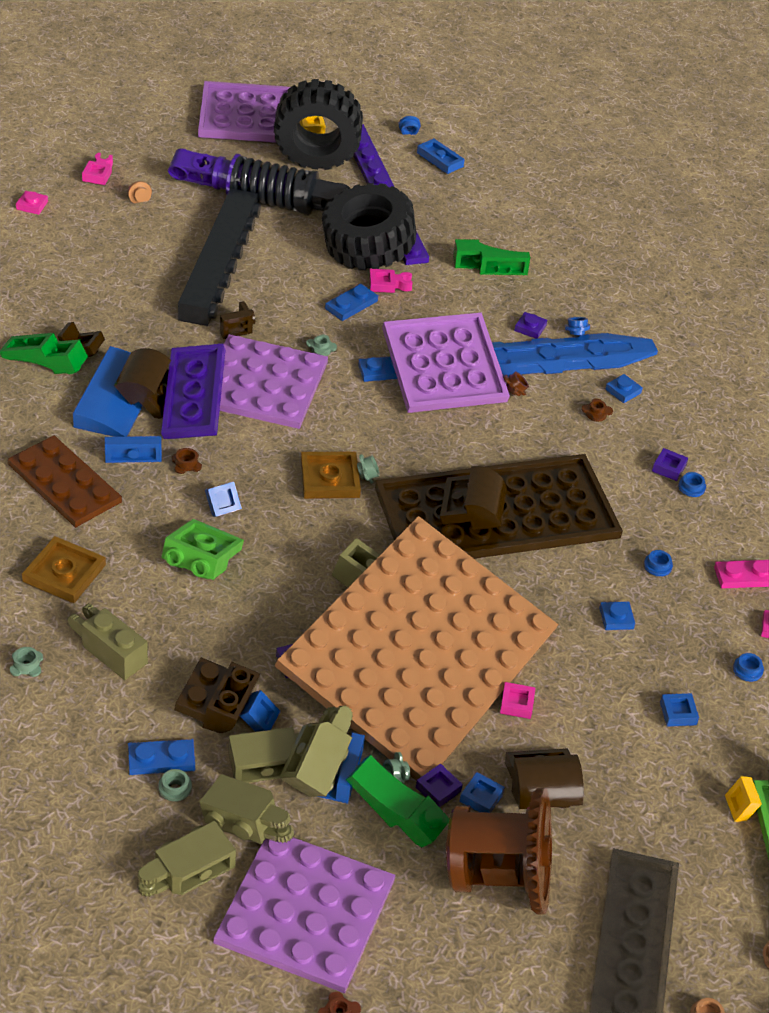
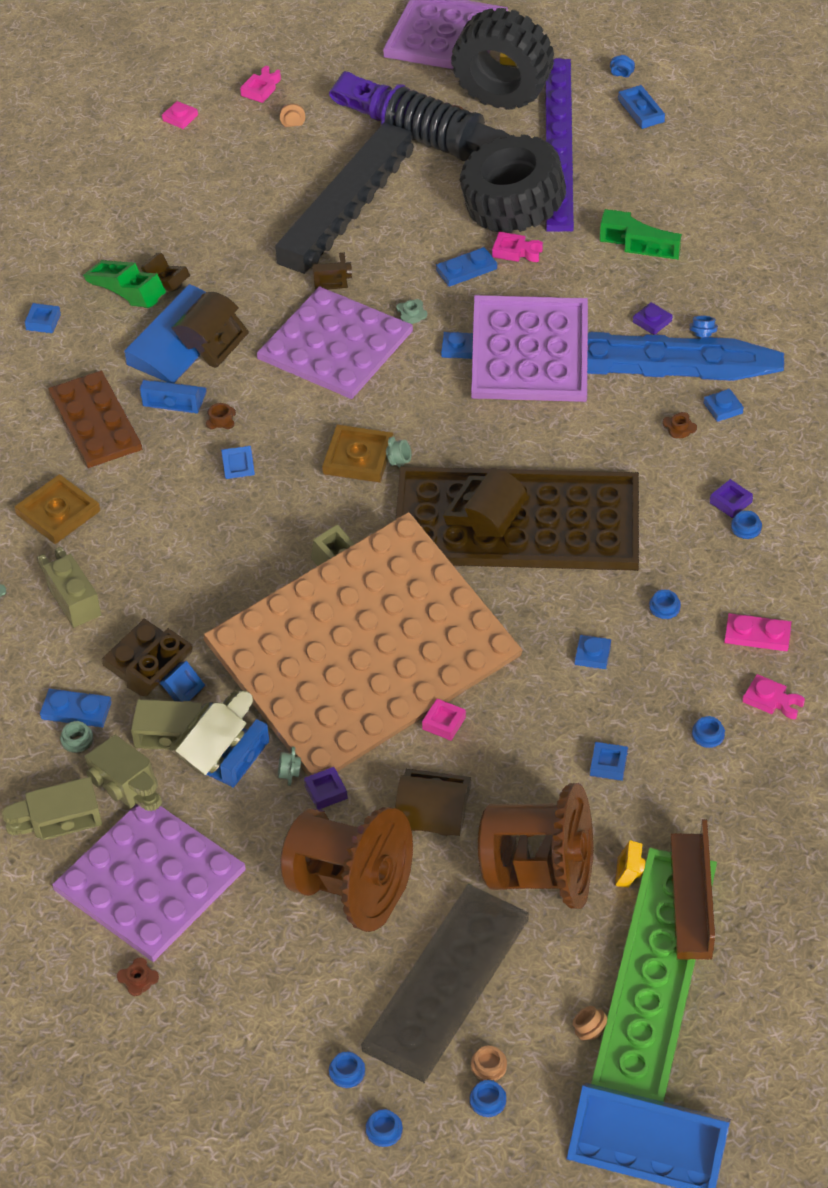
camera: 25 degrees right, 5 degrees up
(193, 391) = (252, 344): dark purple plate -> none
(201, 549) = (194, 509): bright green plate -> none
(397, 803) = (268, 789): green slope -> none
(482, 793) = (362, 803): blue plate -> none
(516, 384) = (601, 383): reddish brown plate -> none
(682, 820) = (563, 857): none -> reddish brown piece

